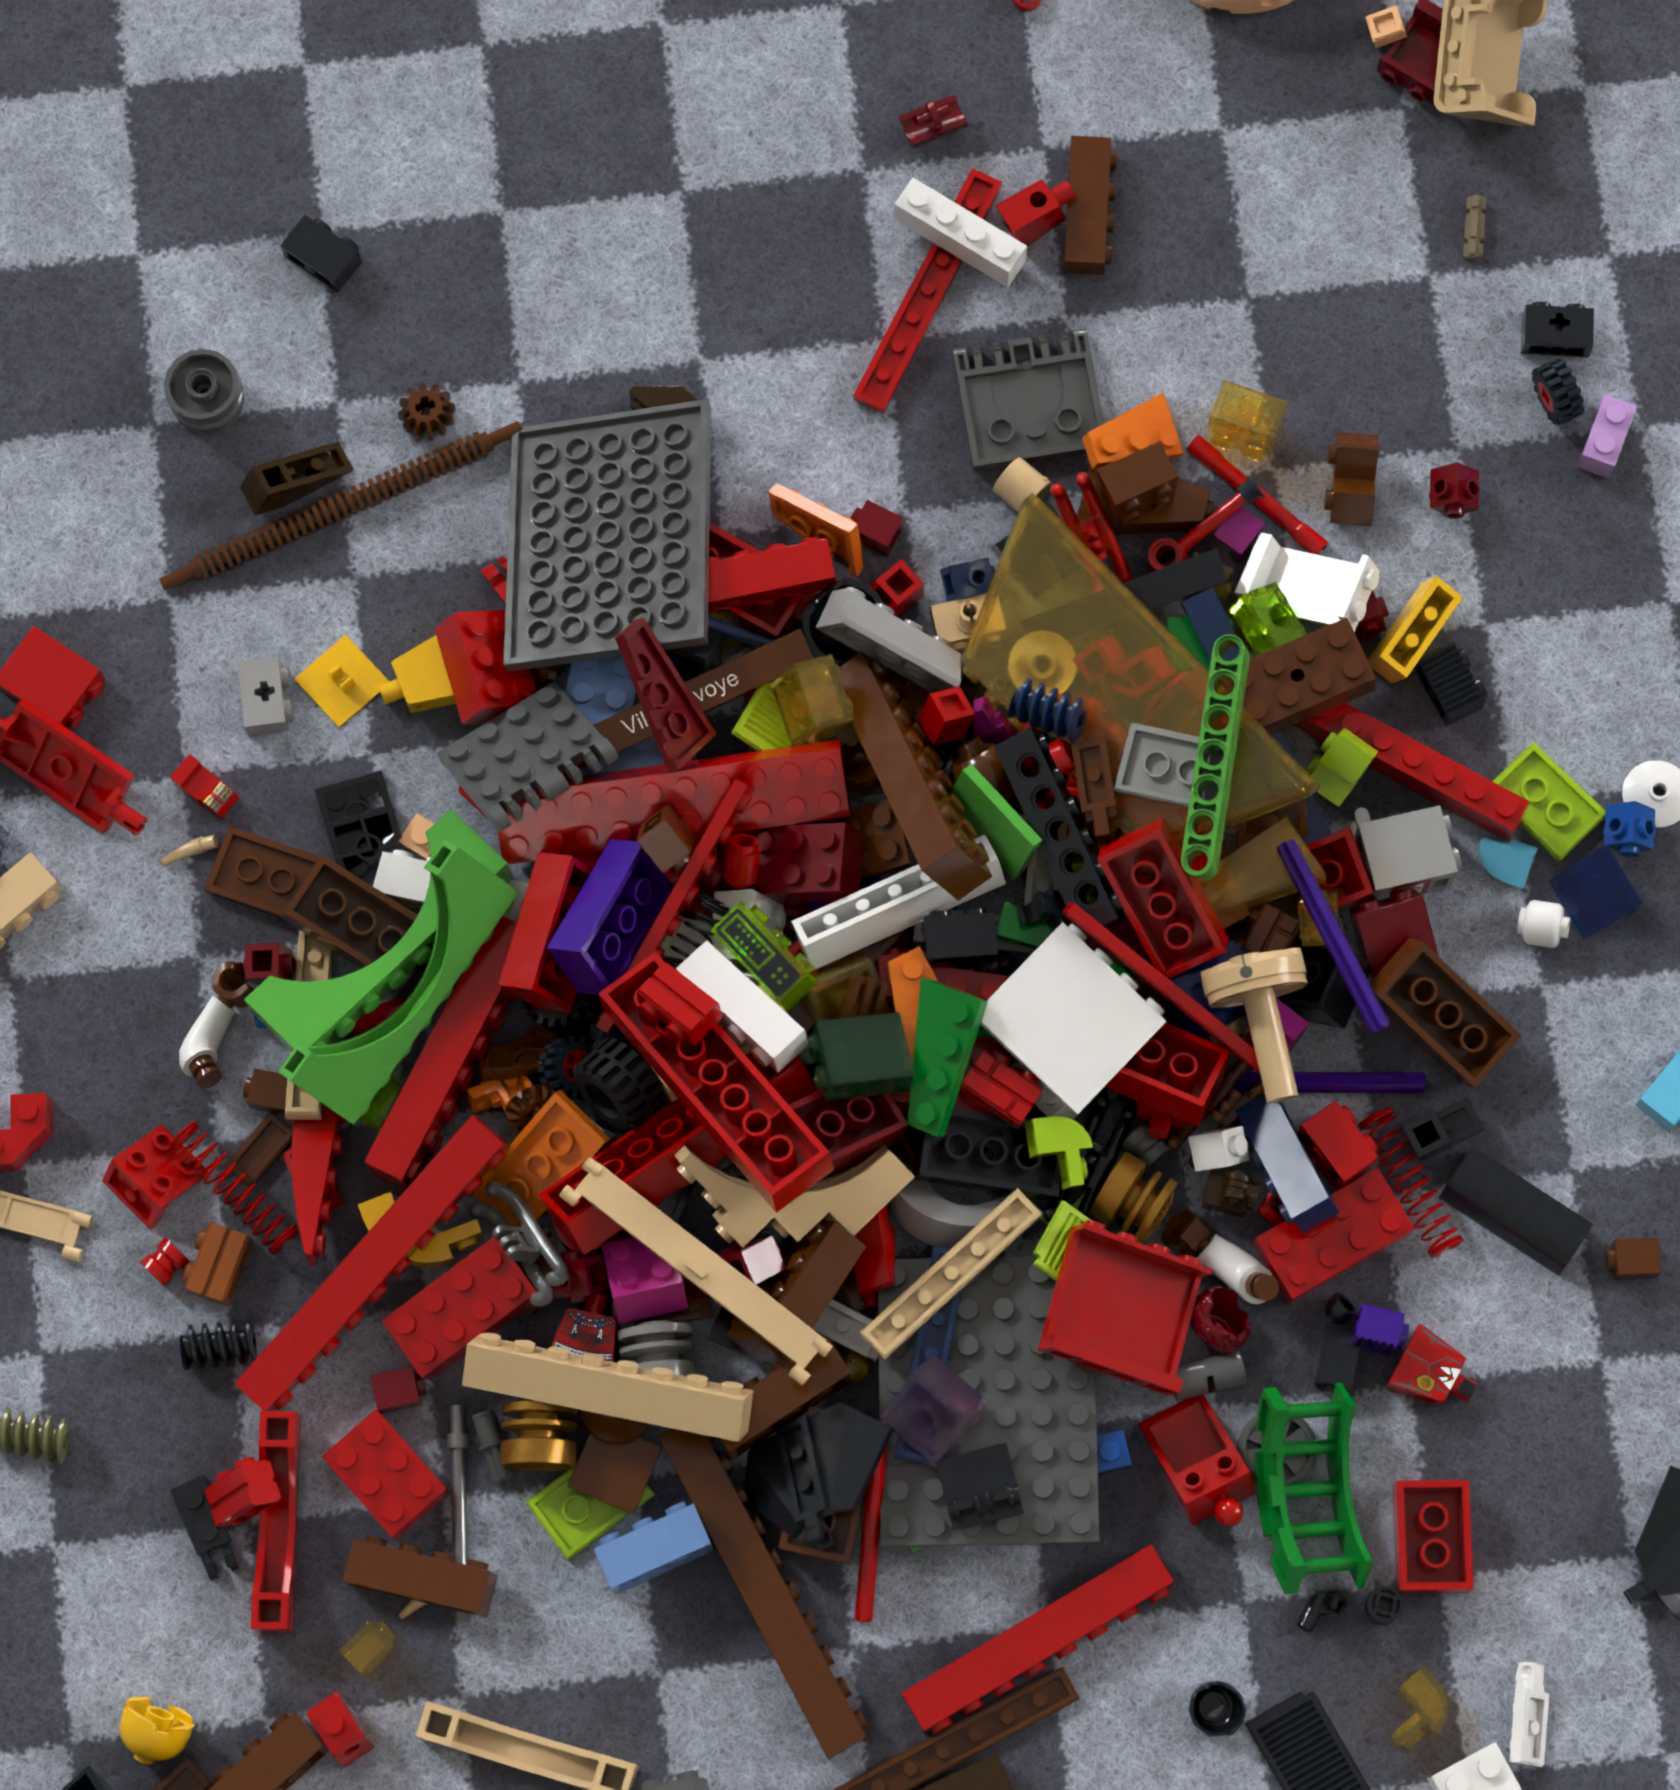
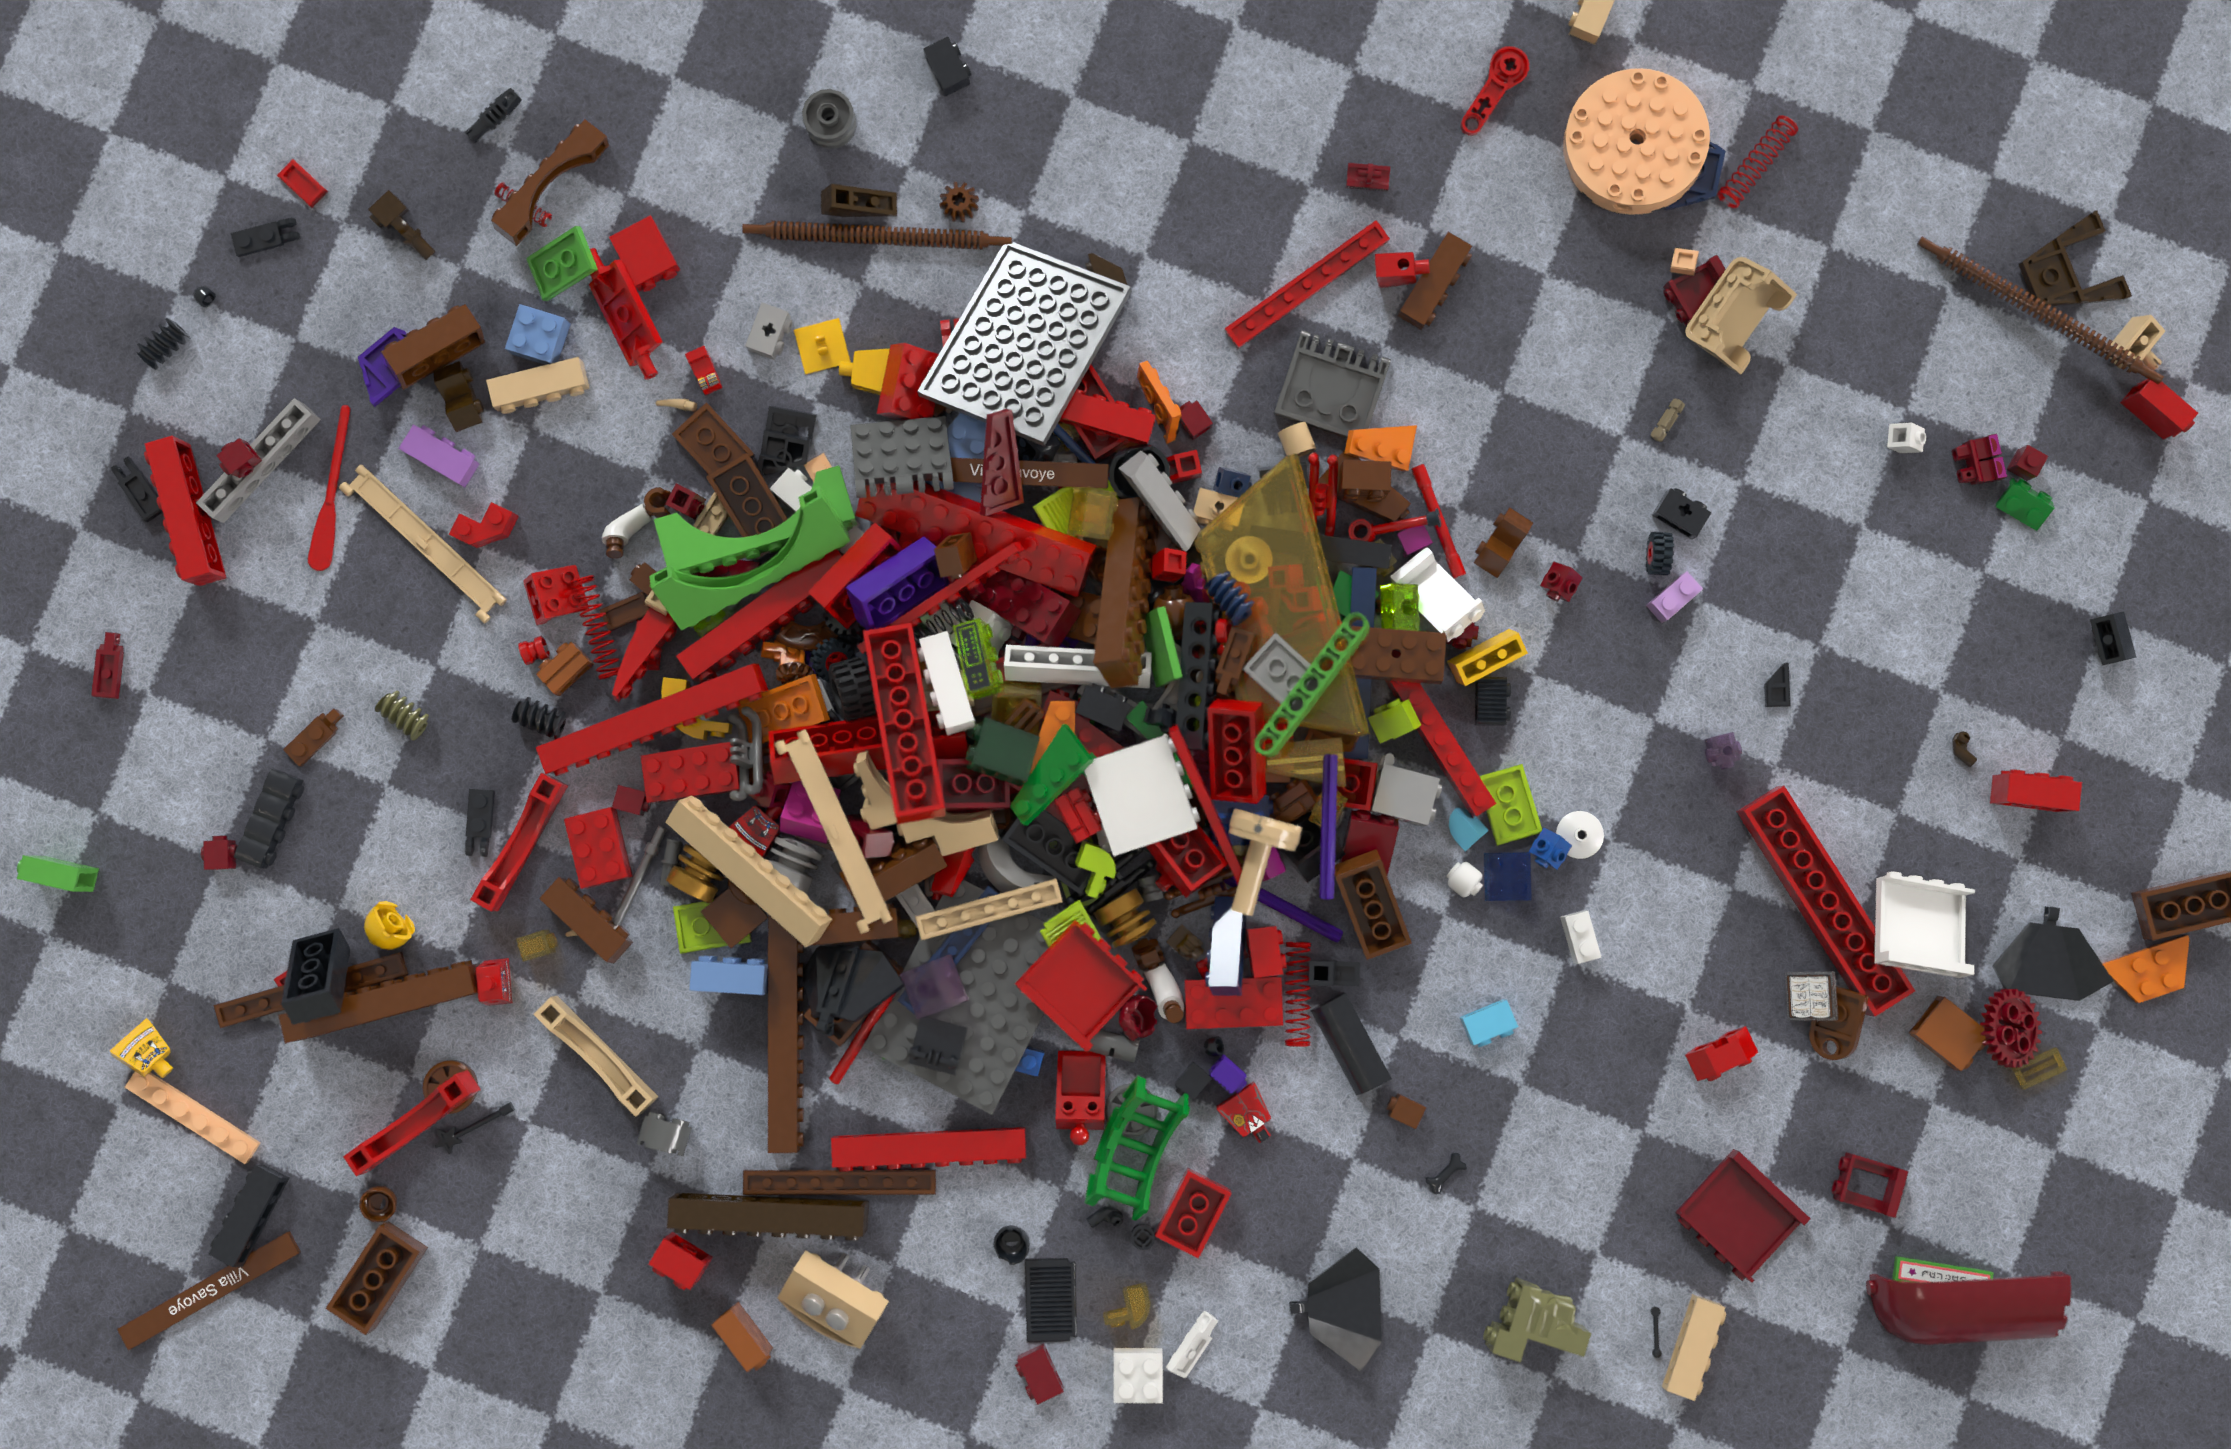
camera: 25 degrees right, 10 degrees up
(242, 1492) = (507, 814): red brick -> none
(678, 1004) = (904, 666): red brick -> none
(741, 861) = (996, 591): red brick -> none
(960, 232) = (1345, 258): white brick -> none
(1219, 1148) = (1192, 915): white brick -> none
(1246, 421) = (1456, 472): clear yellow brick -> none

